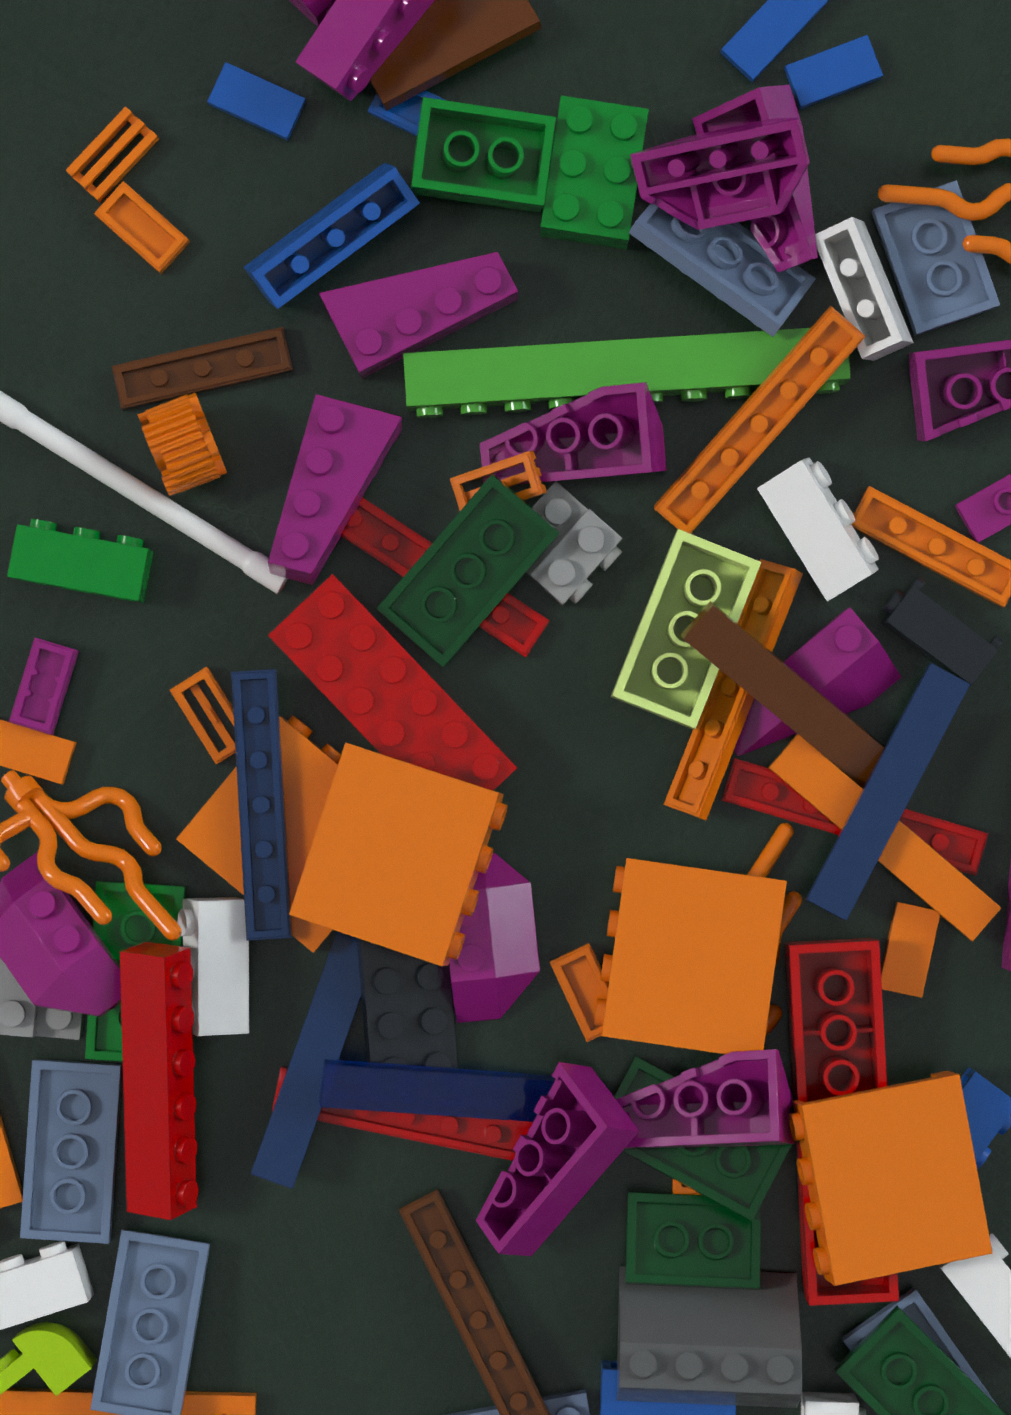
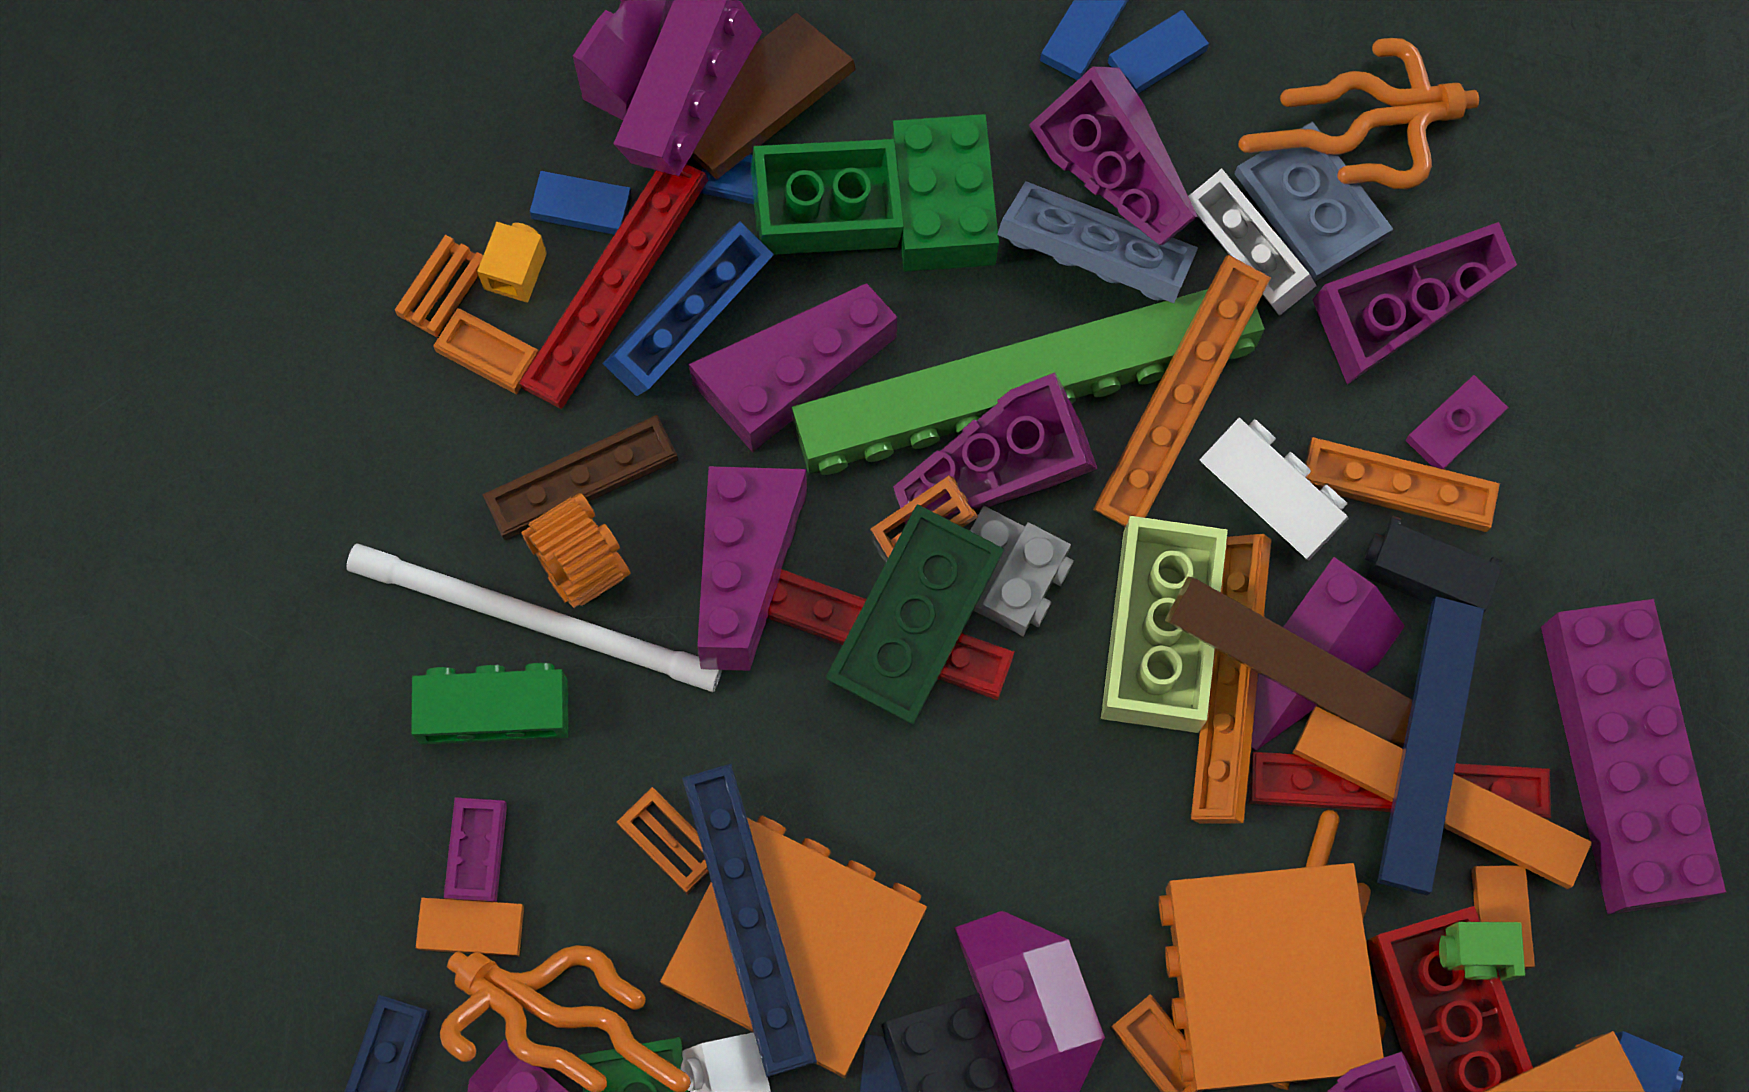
camera: 20 degrees left, 15 degrees down
(182, 147) = (512, 261): none -> light orange brick
(269, 190) = (612, 285): none -> red tile
(385, 689) = (867, 775): red brick -> none
(398, 855) = (917, 933): orange panel -> none
(725, 172) = (1084, 150): magenta wedge -> none
(871, 981) = (1484, 949): none -> bright green brick

